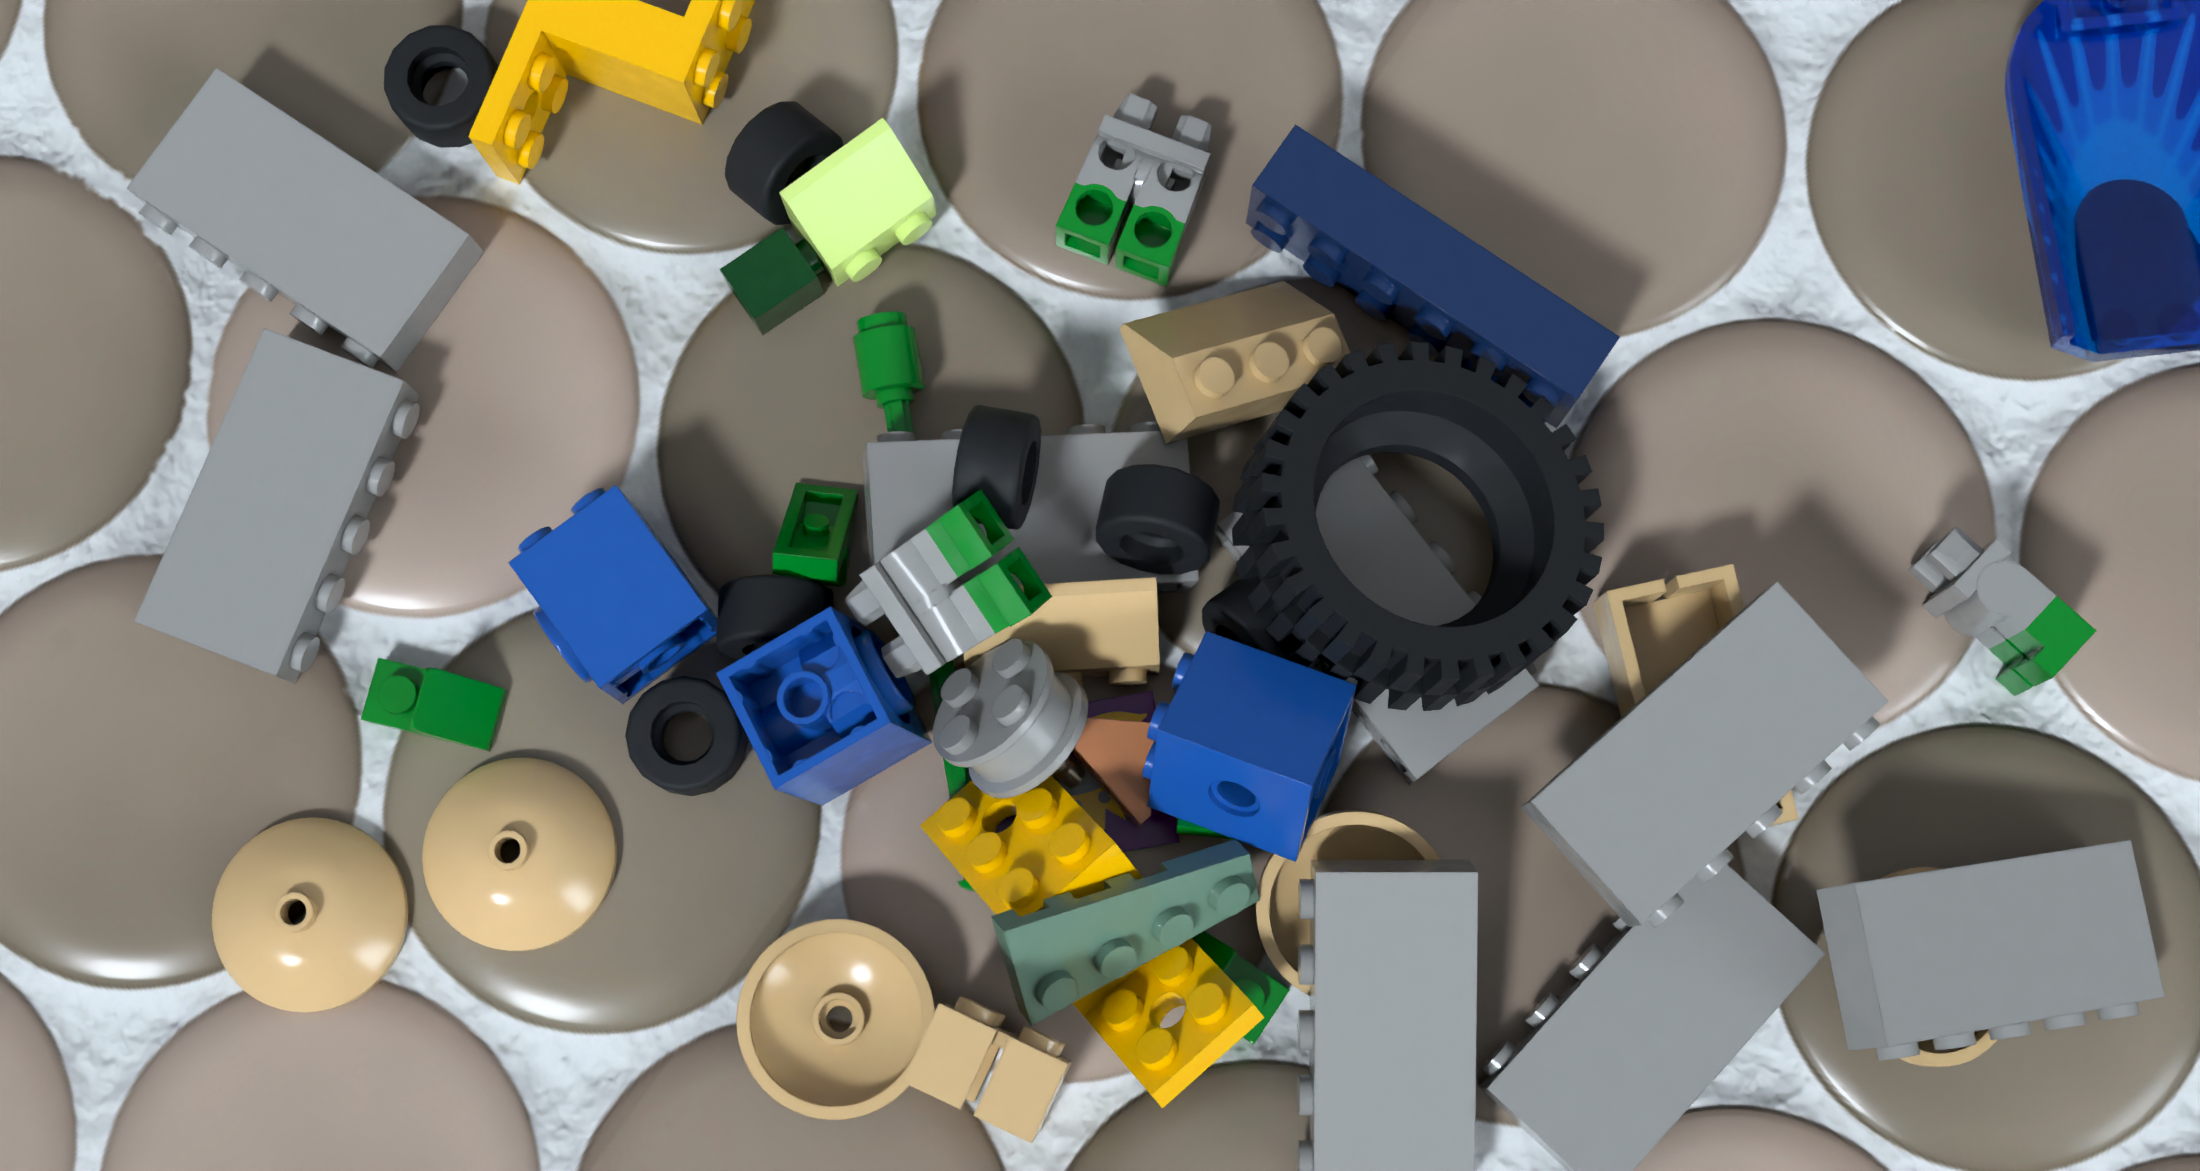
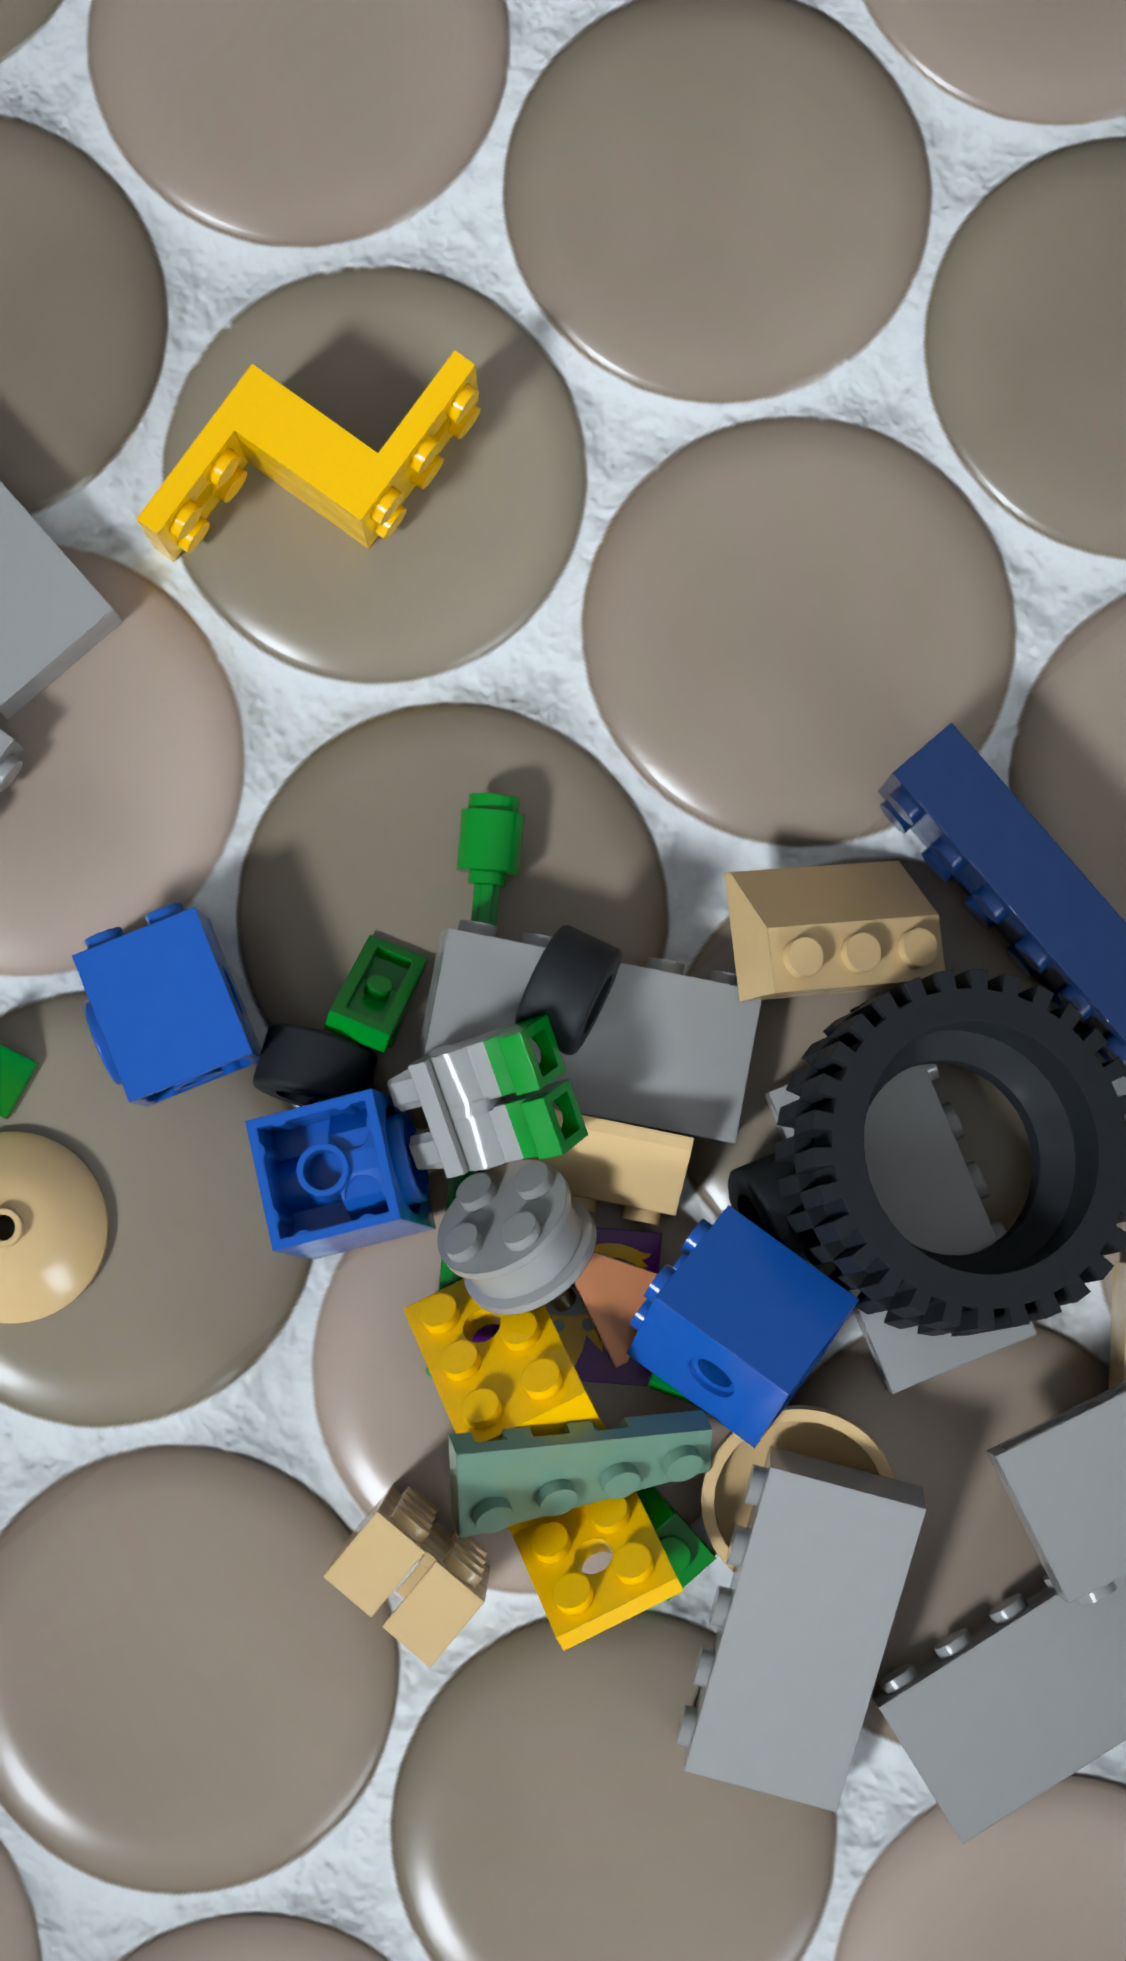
camera: 10 degrees right, 5 degrees up
(417, 61) = (106, 412): black tyre -> none
(647, 728) = (161, 1159): black tyre -> none
(774, 153) = (439, 615): black tyre -> none
(774, 279) = (400, 729): dark green brick -> none
(788, 1009) = (236, 1501): tan dish -> none
(860, 204) = (503, 681): yellowish green slope -> none
(1138, 168) = (792, 716): hips -> none
(1157, 519) = (710, 1079): black tyre -> none

